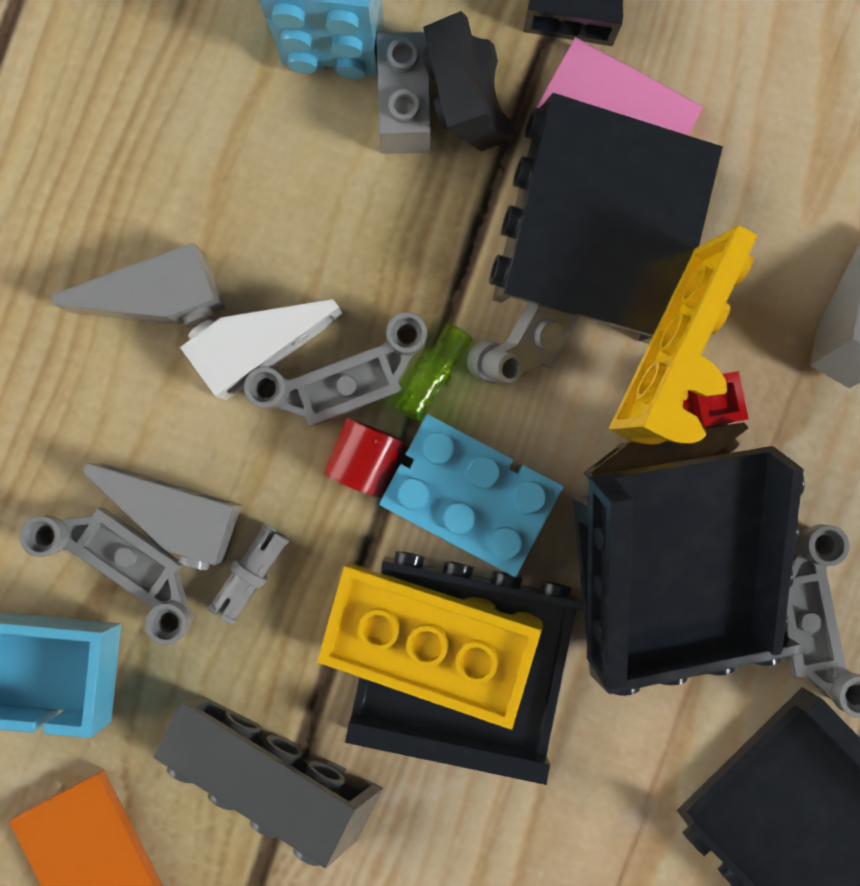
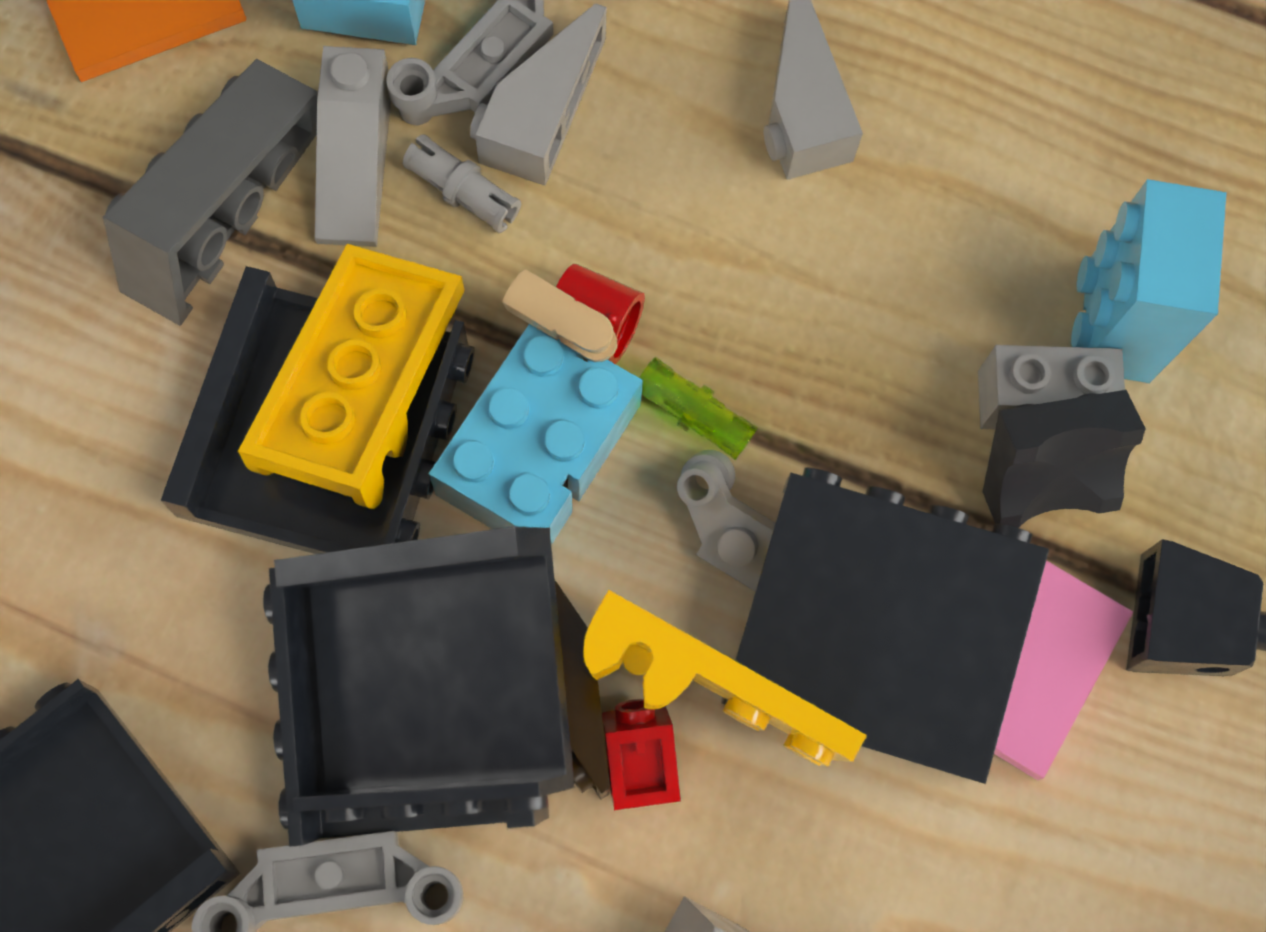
camera: 90 degrees right, 15 degrees down
(221, 668) = (351, 145): none -> light grey slope
(240, 343) = (735, 189): white slope -> none
(344, 384) = (686, 303): light grey plate -> none
(383, 482) = (561, 317): none -> tan bar

